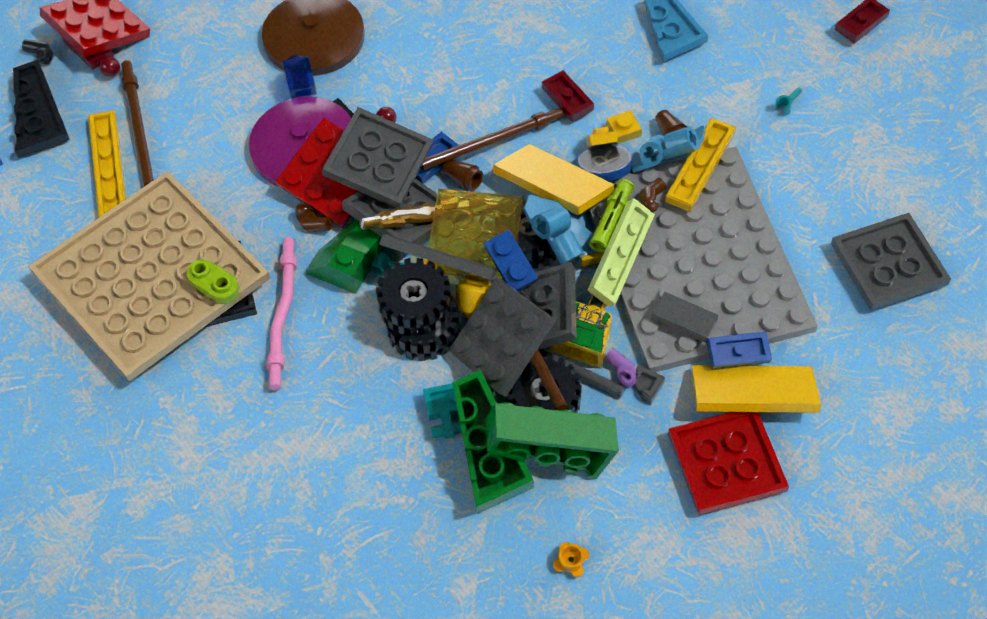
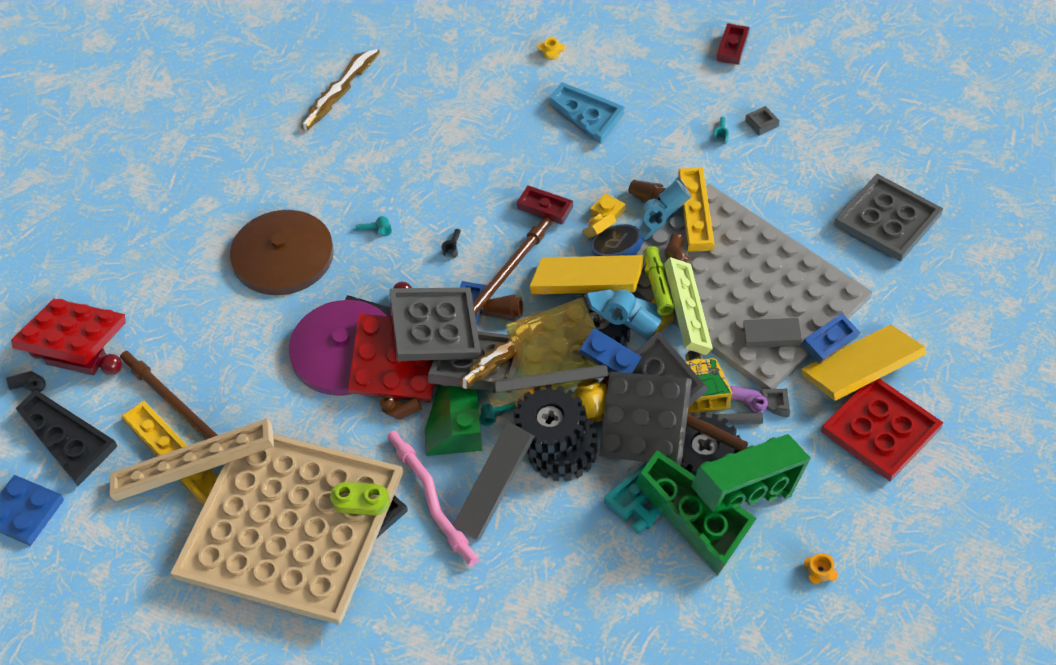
camera: 30 degrees left, 5 degrees down
(109, 179) = (191, 459): none -> tan plate
(299, 76) = (302, 291): clear blue brick -> none
(332, 323) = (493, 480): none -> dark grey tile
(411, 48) = (381, 224): none -> teal hand
(459, 95) = (451, 244): none -> black hand
(836, 108) = (762, 120): none -> dark grey tile

